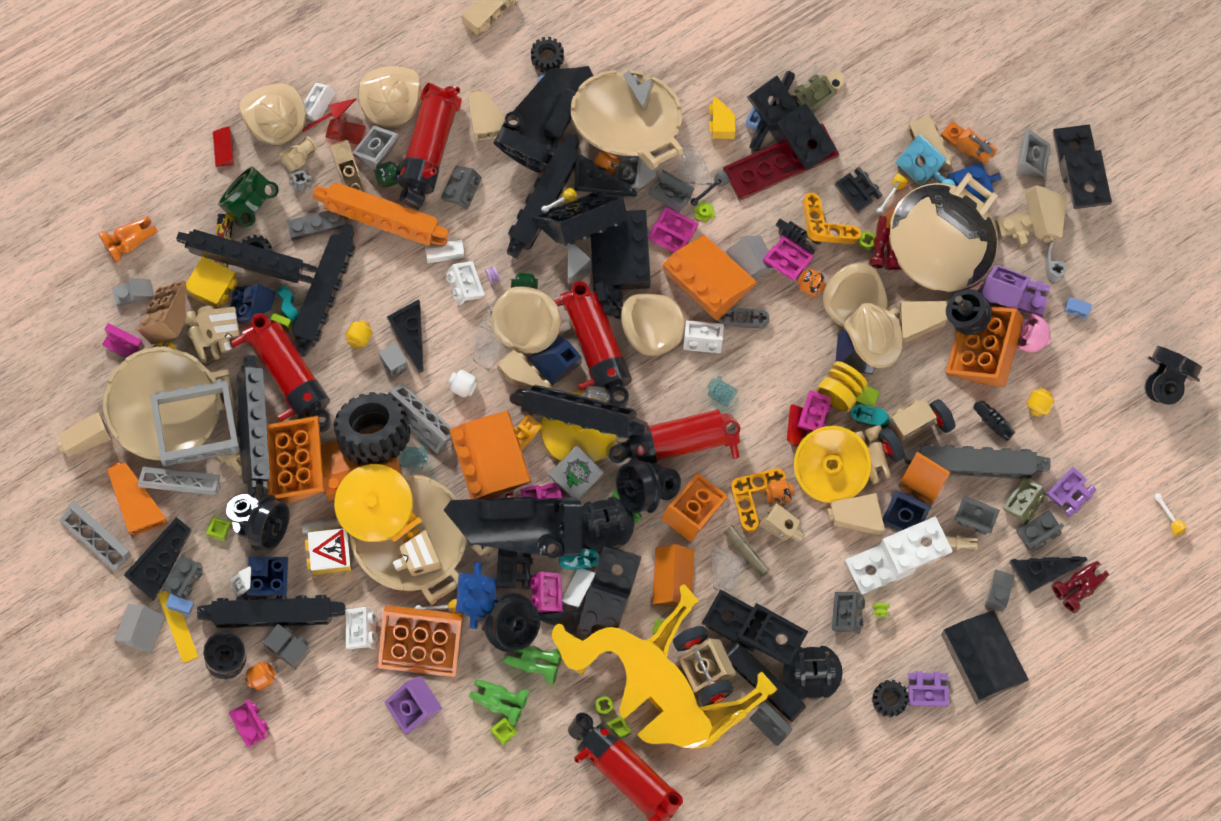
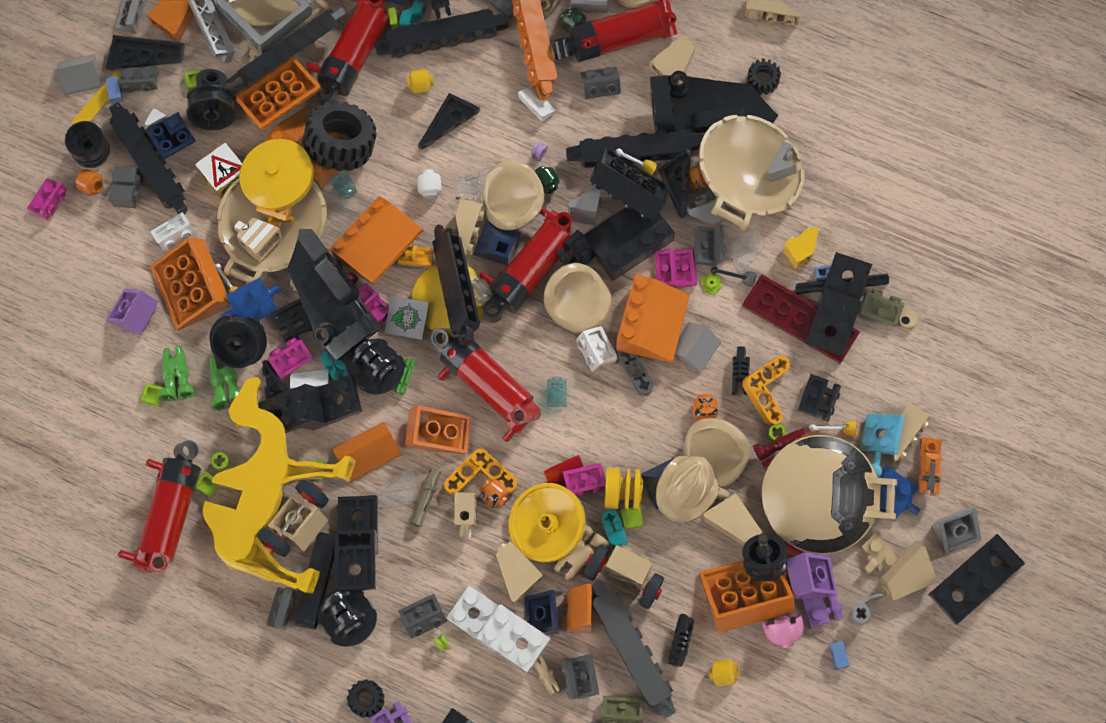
camera: 65 degrees right, 0 degrees up
(321, 525) = (239, 150): light grey pin -> none
(393, 360) = (415, 120): light grey brick -> none
(424, 429) = (375, 165): light grey fence -> none
(464, 282) = (519, 134): white bracket -> none
(644, 484) = (428, 378): black piece -> none
(788, 258) = (713, 375): dark pink slope -> none

